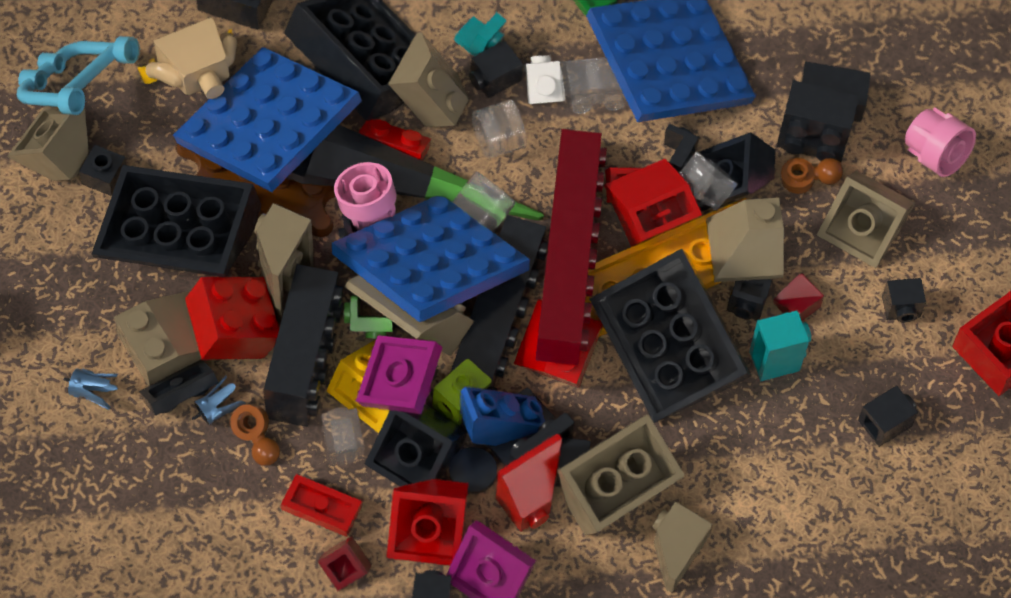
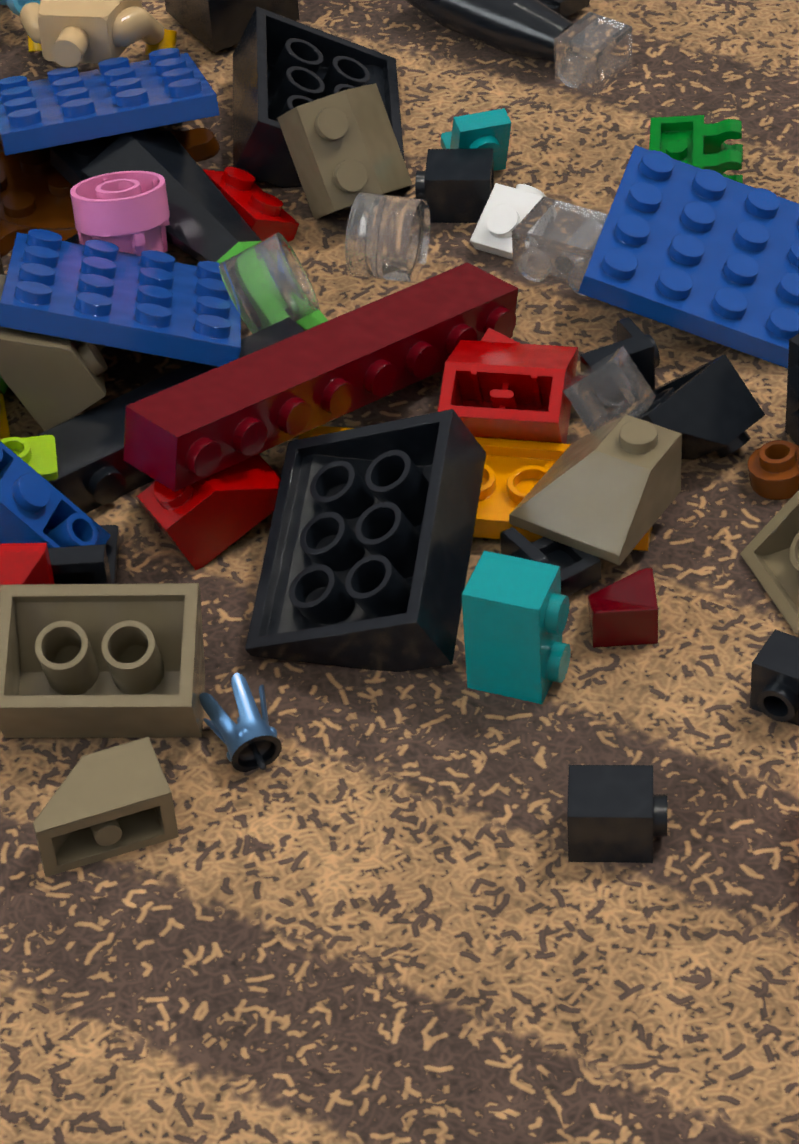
camera: 45 degrees right, 20 degrees down
(697, 466) = (252, 740): none -> flat silver piece

